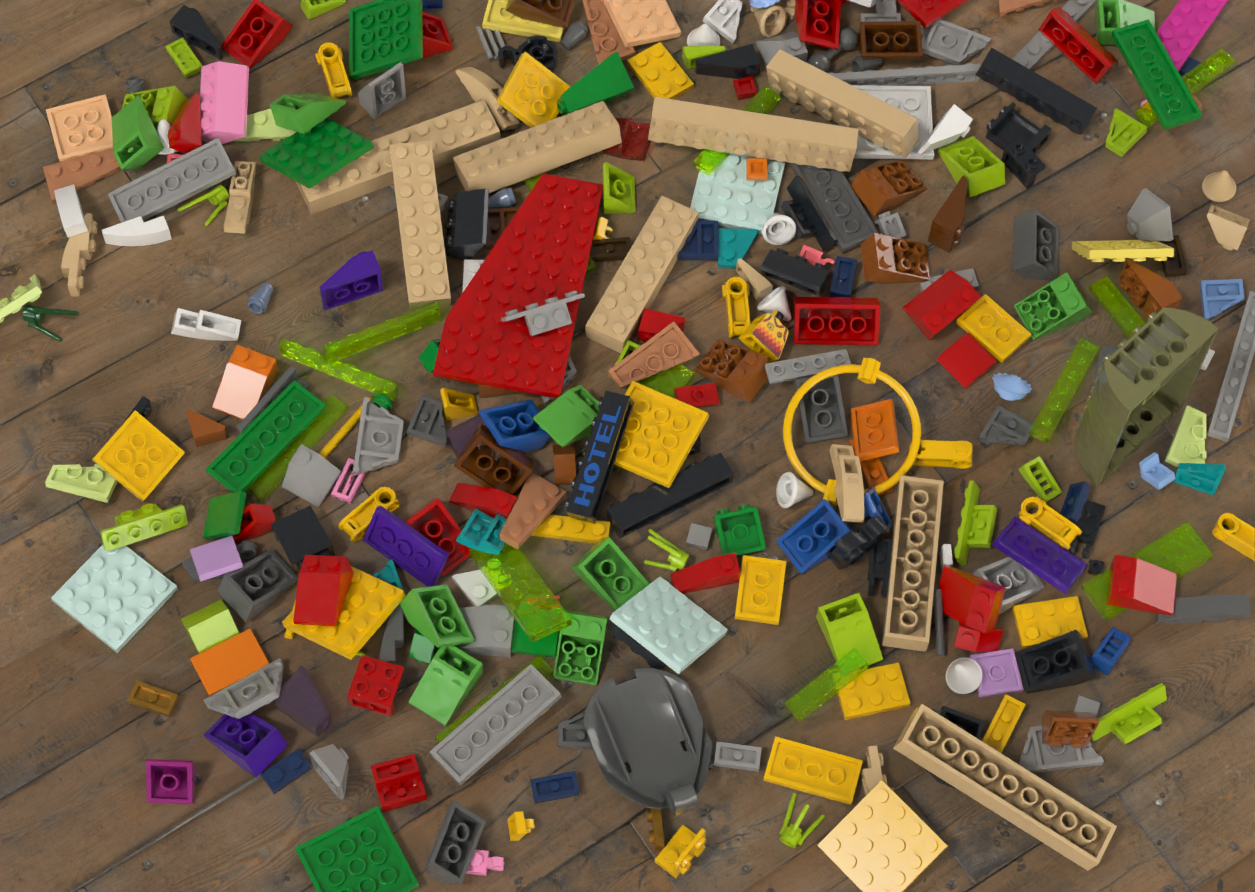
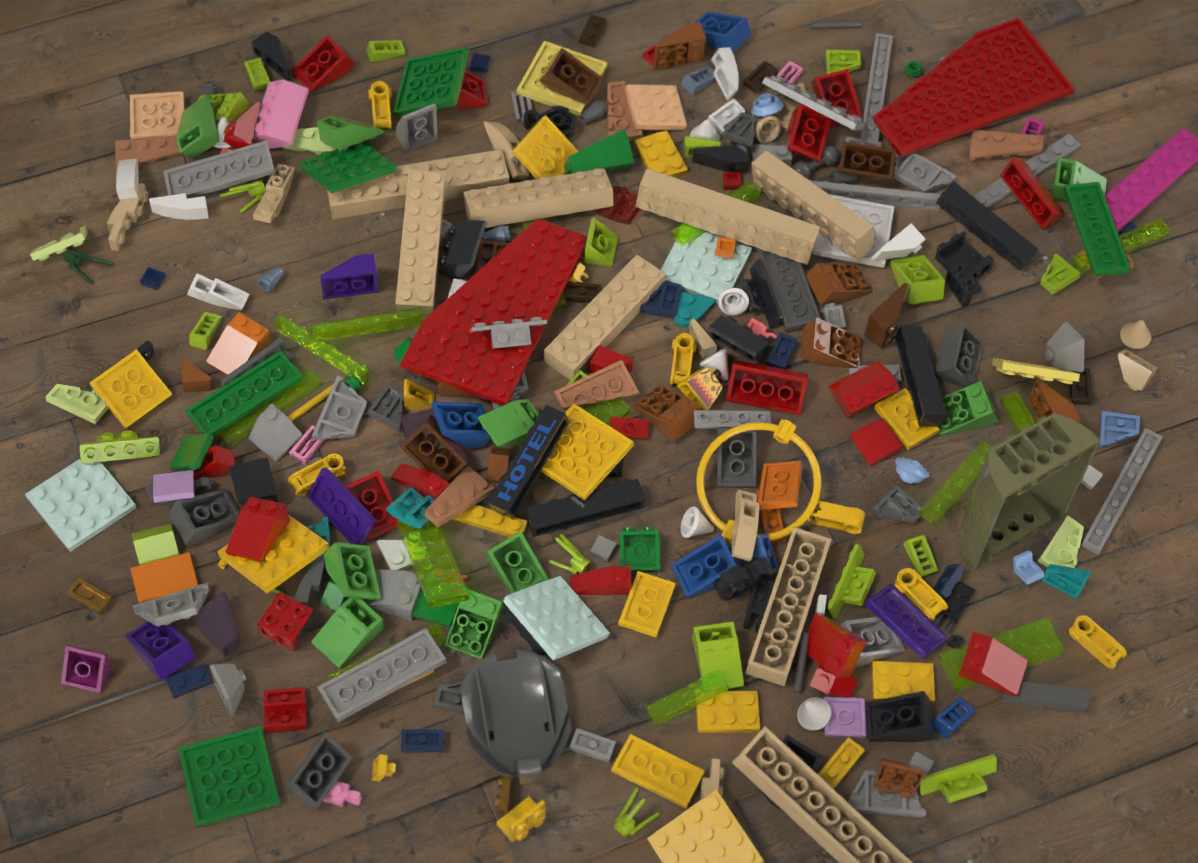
camera: 10 degrees right, 5 degrees down
(127, 322) = (152, 278): none -> clear blue tile
(201, 383) = (203, 340): none -> lime slope
(744, 27) = (741, 129): none -> dark grey wing
(999, 277) = (920, 376): none -> black brick

